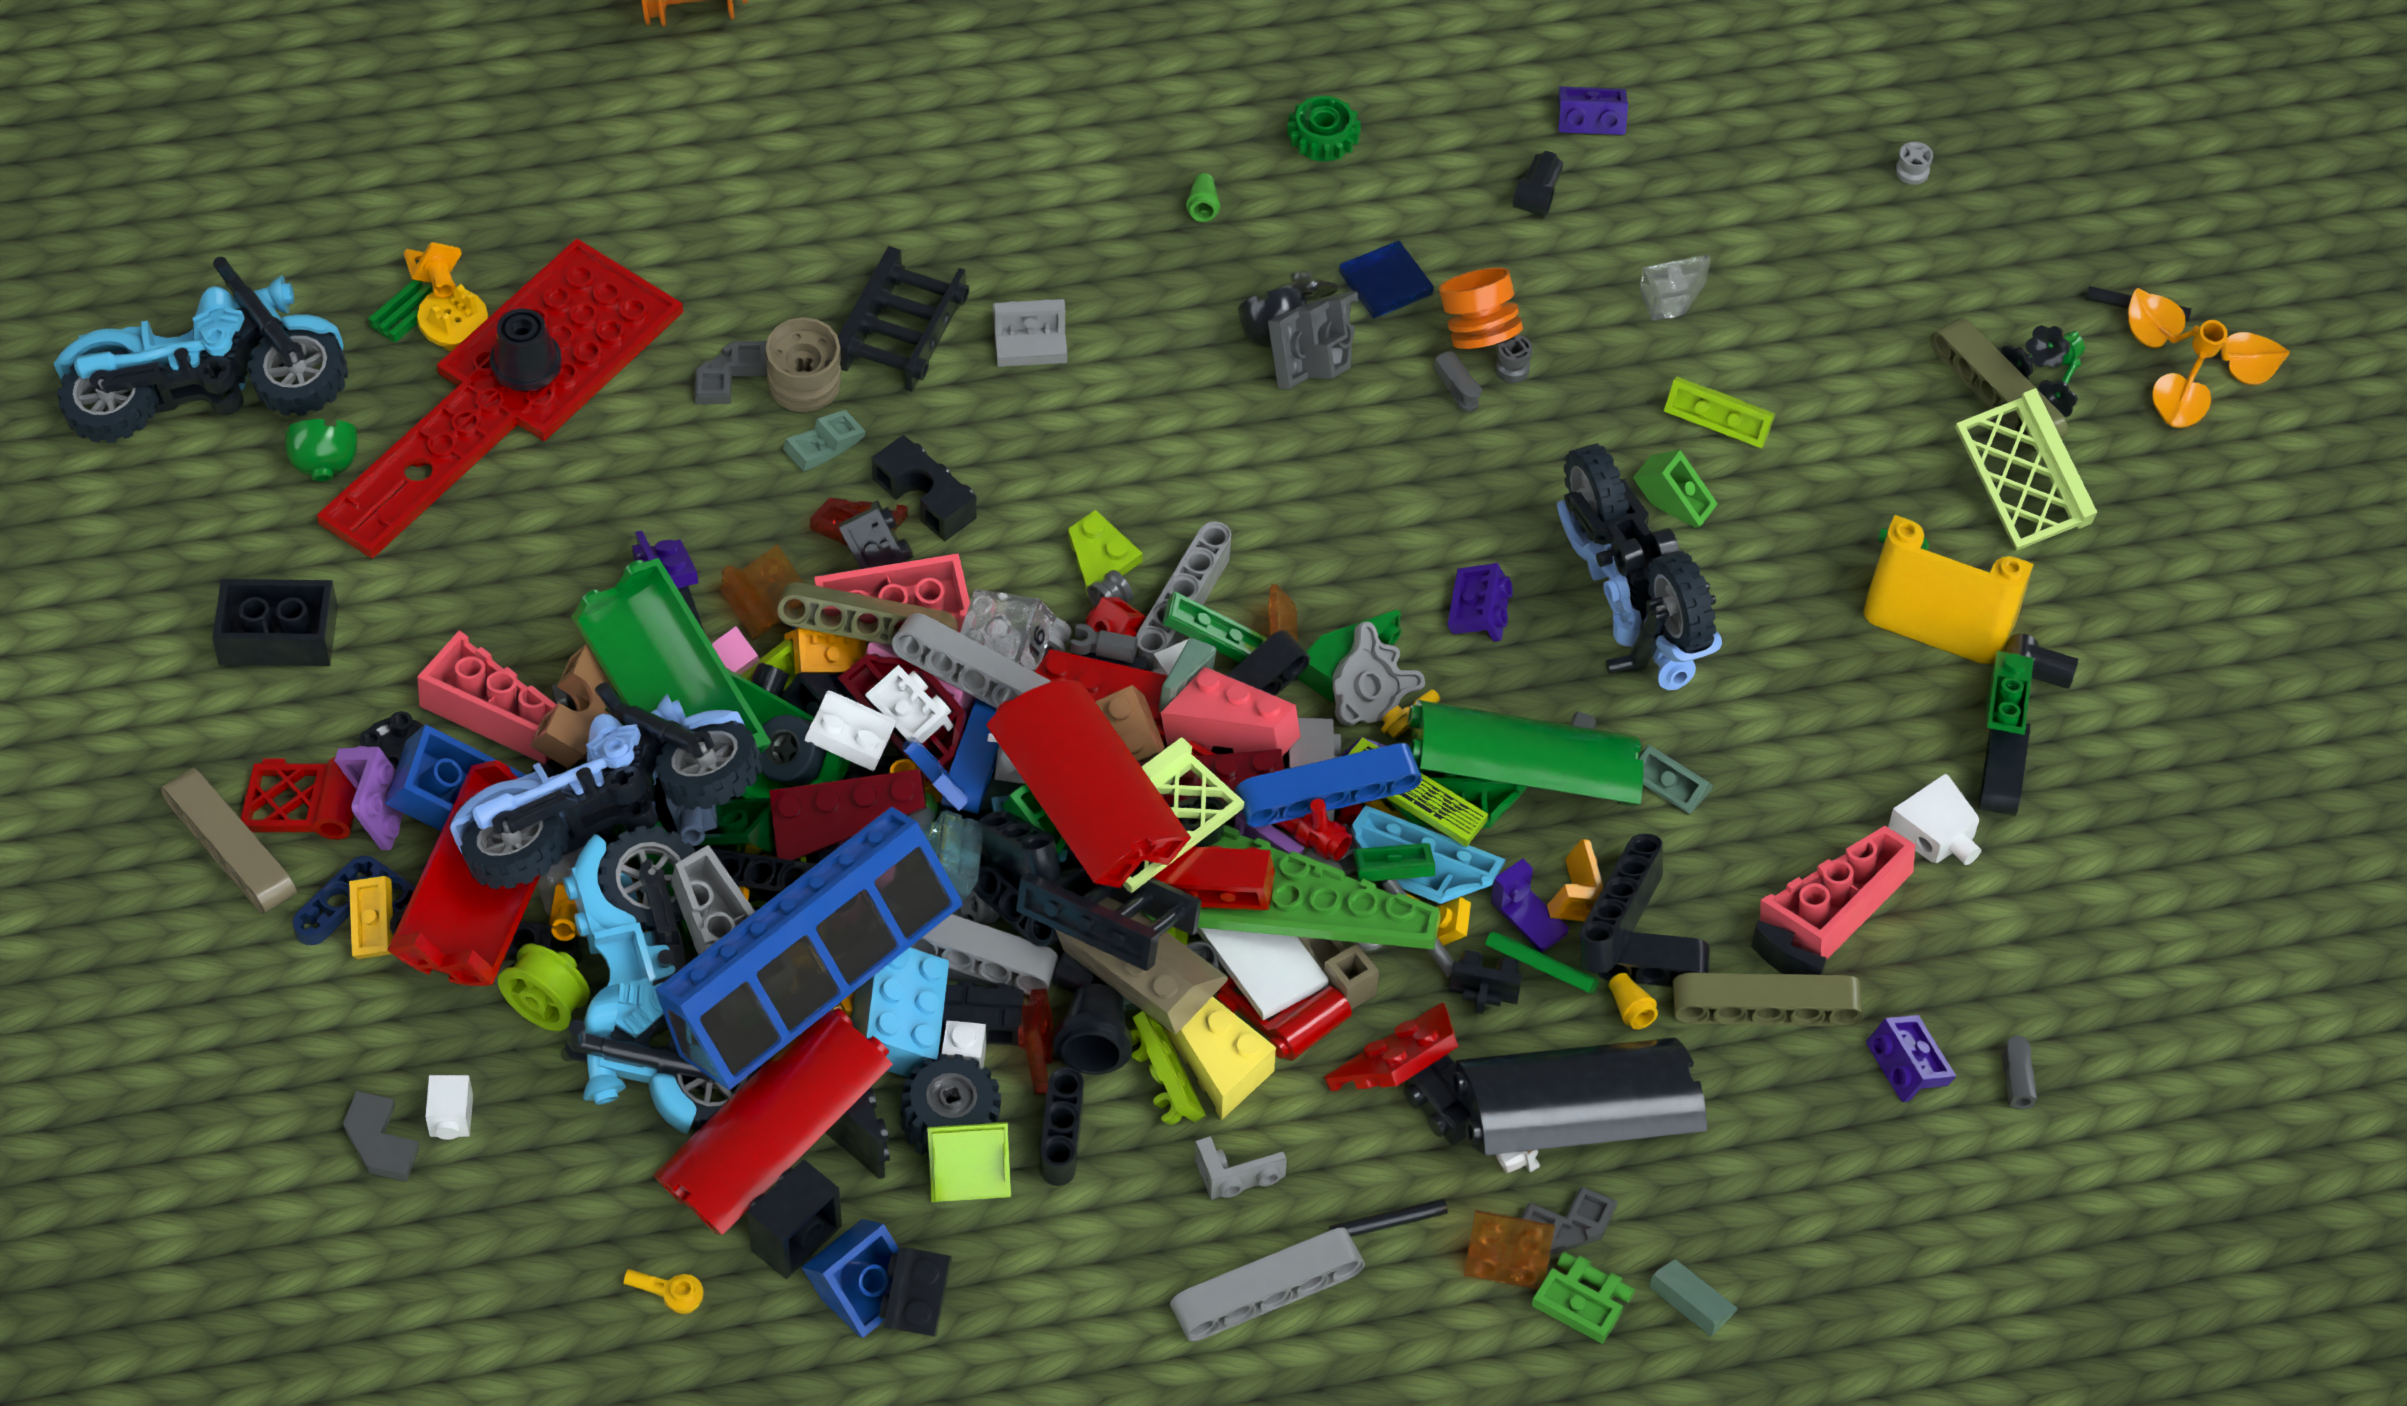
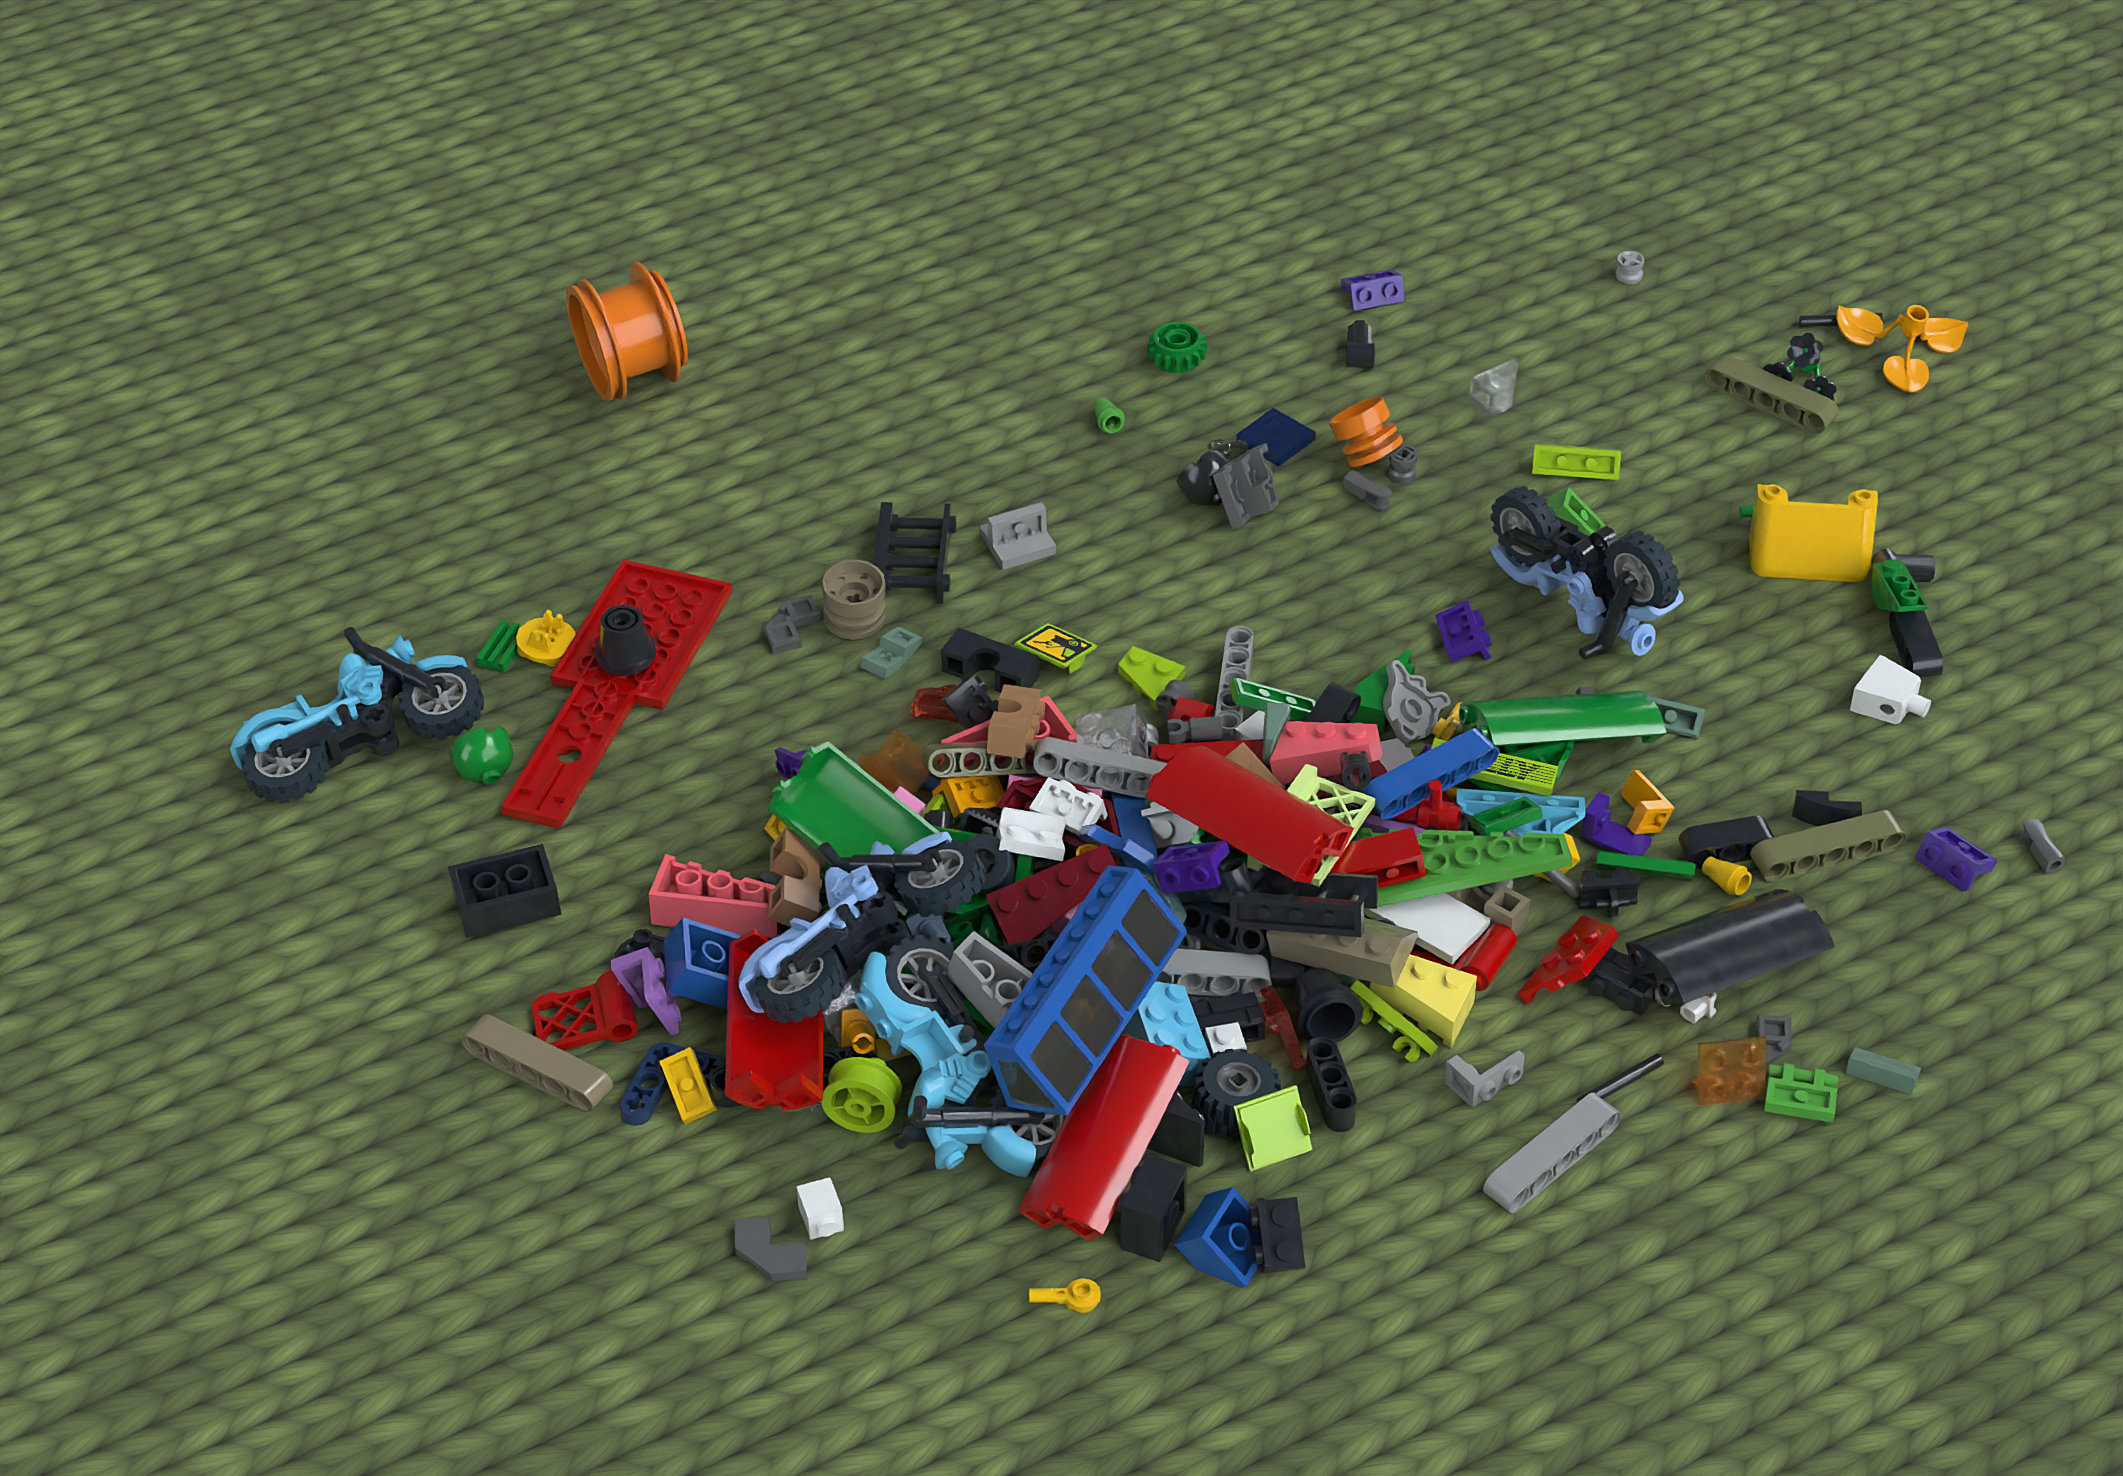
camera: 15 degrees left, 10 degrees down
(434, 267) = (517, 605): light orange bracket -> none
(905, 574) = (1016, 721): none -> medium nougat arch
(997, 824) = (1190, 866): none -> dark purple bracket
(1007, 487) = (1057, 646): none -> piece
(1237, 760) = (1353, 761): none -> black hinge
(1281, 612) = (1311, 679): clear orange slope -> none
(1621, 903) = (1688, 804): black beam -> none
(1841, 893) = (1845, 754): coral wedge -> none
(2056, 465) = (1841, 429): yellowish green fence -> none

